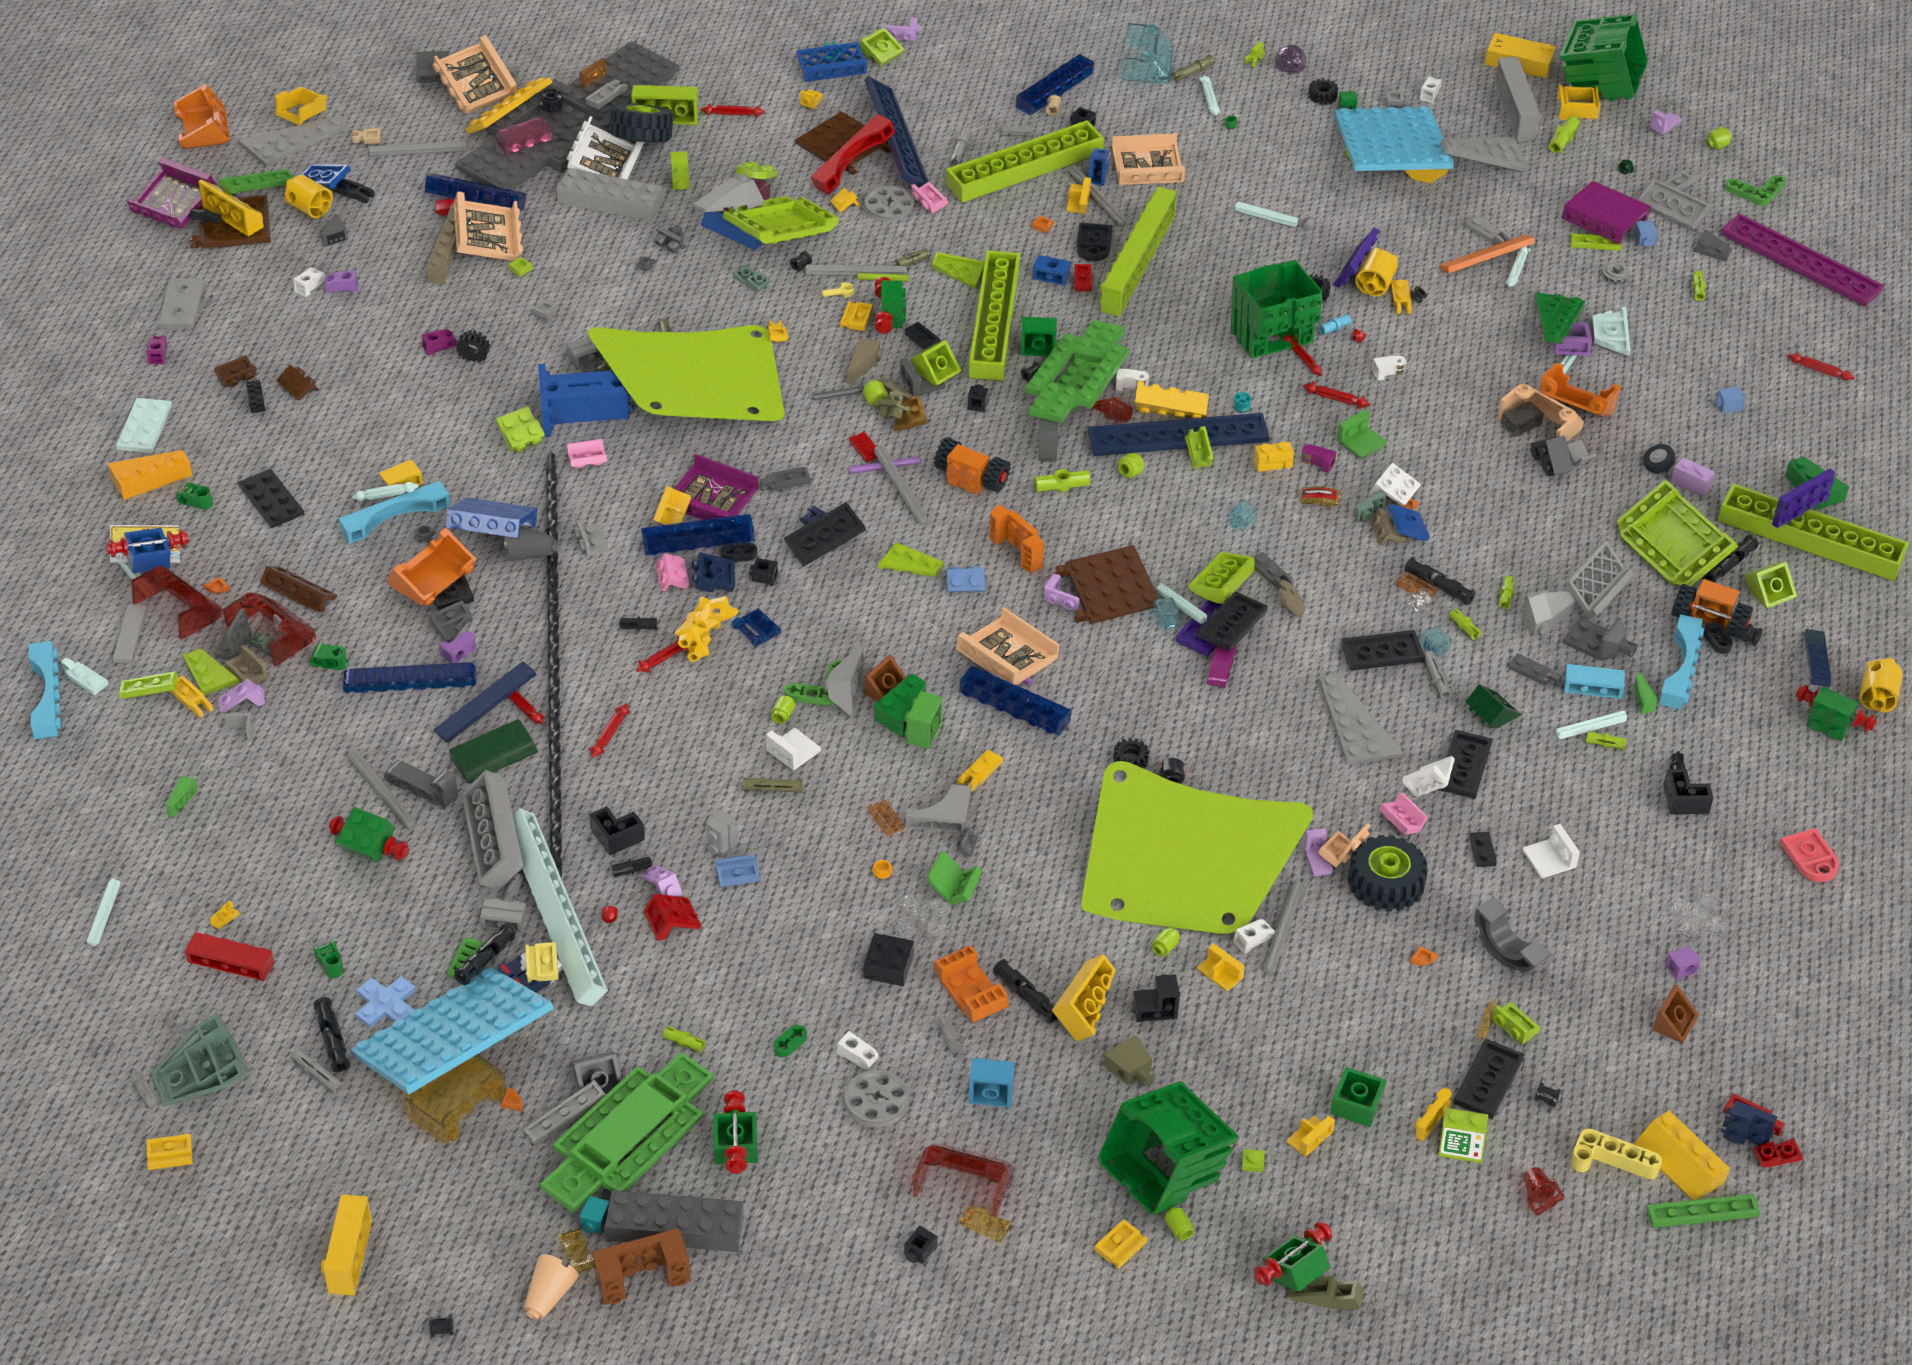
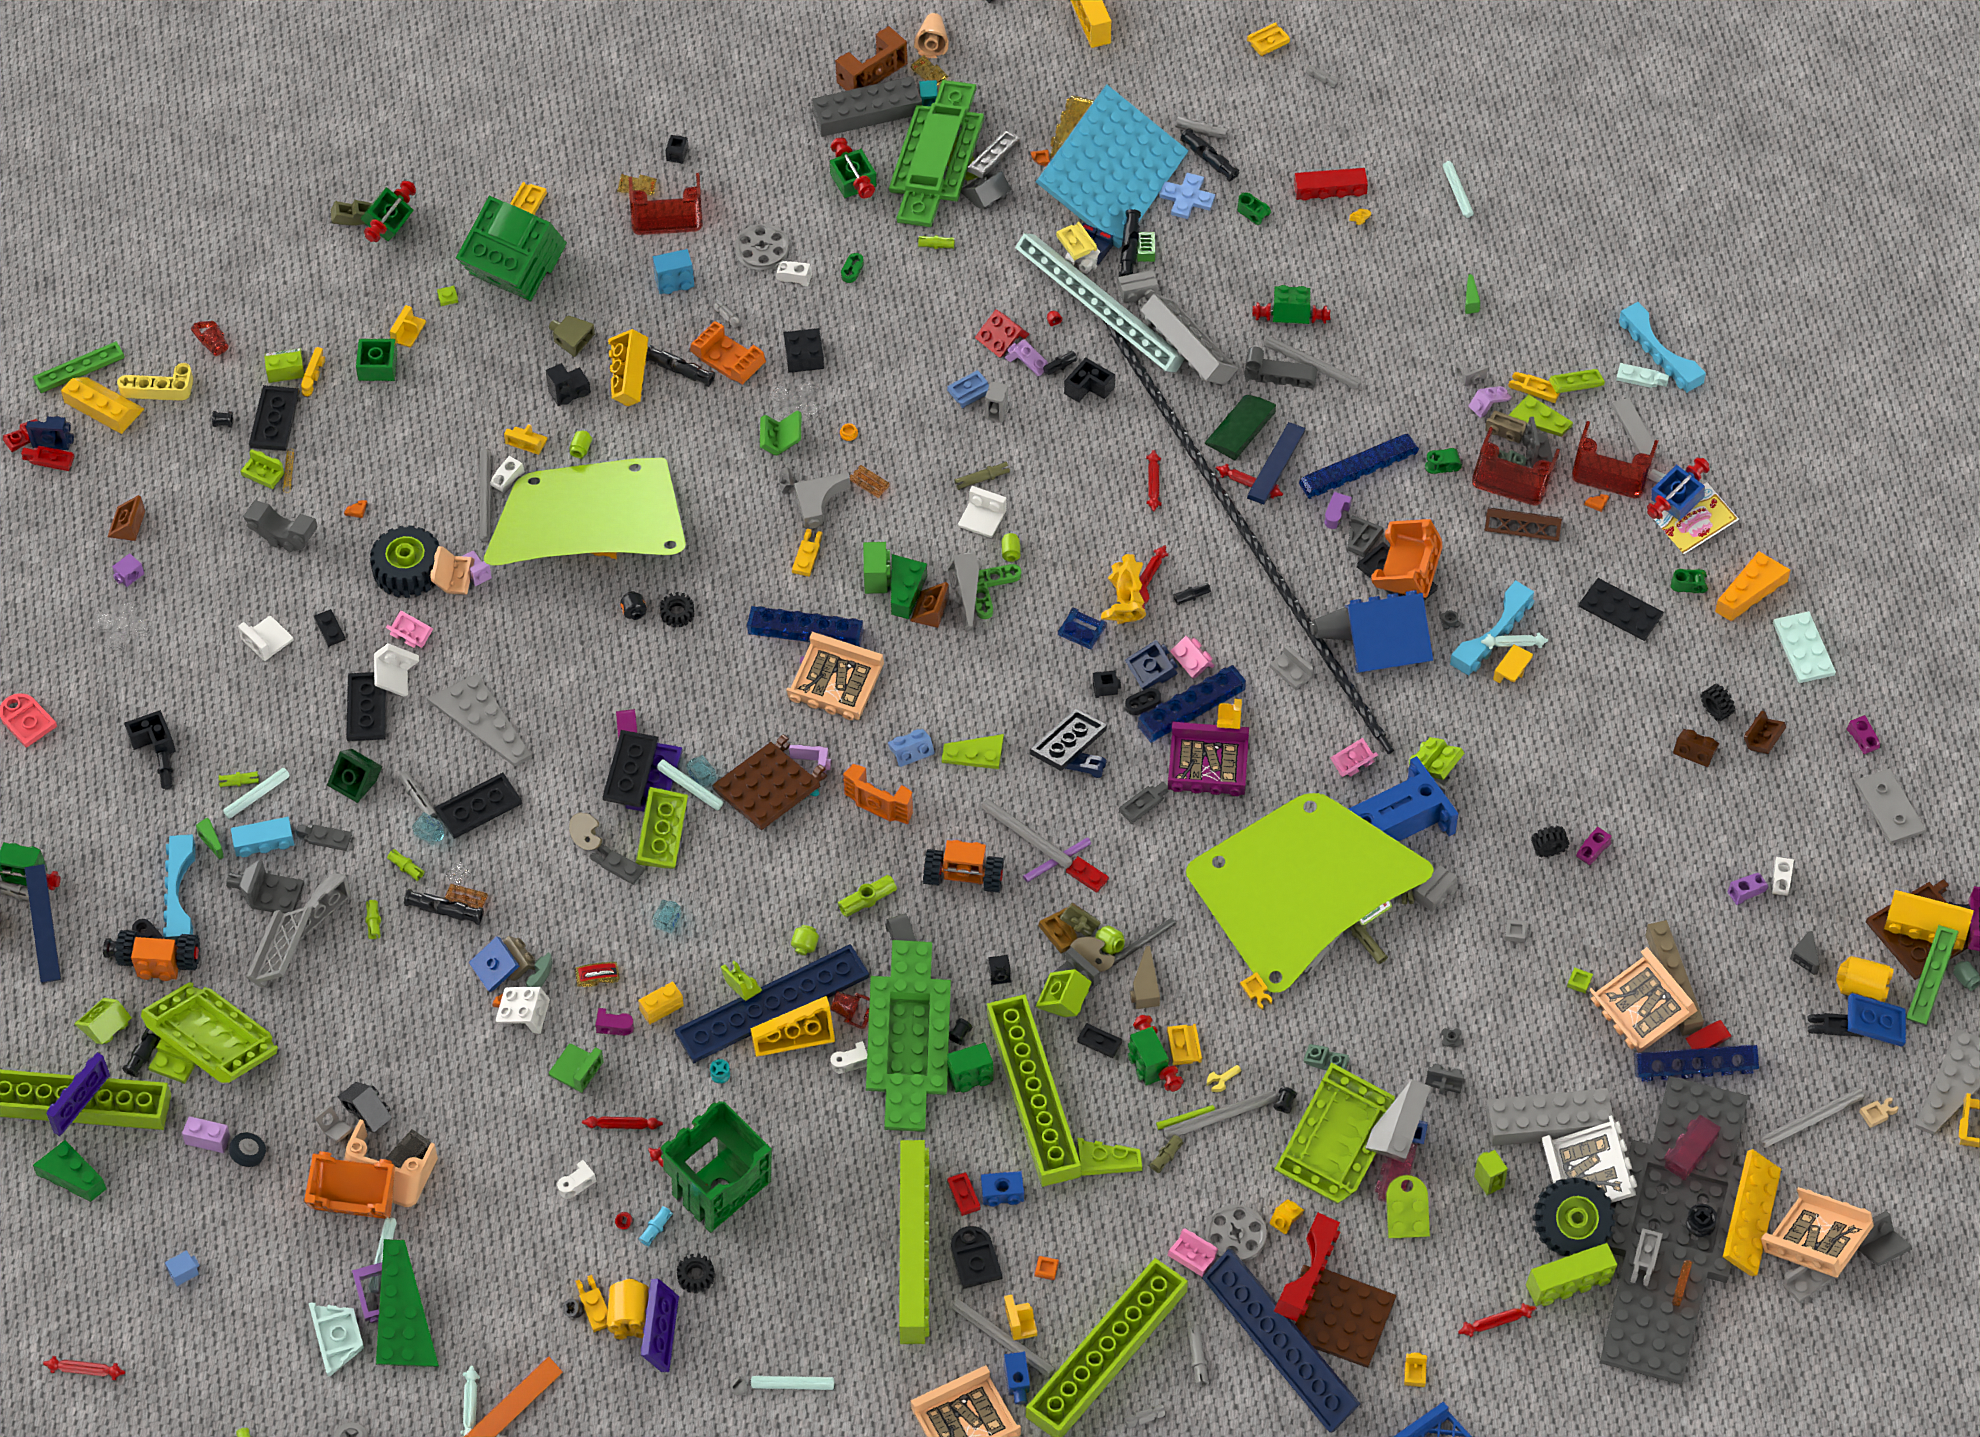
camera: 160 degrees right, 10 degrees up
(200, 1063) = (1284, 97): sand green wedge -> none

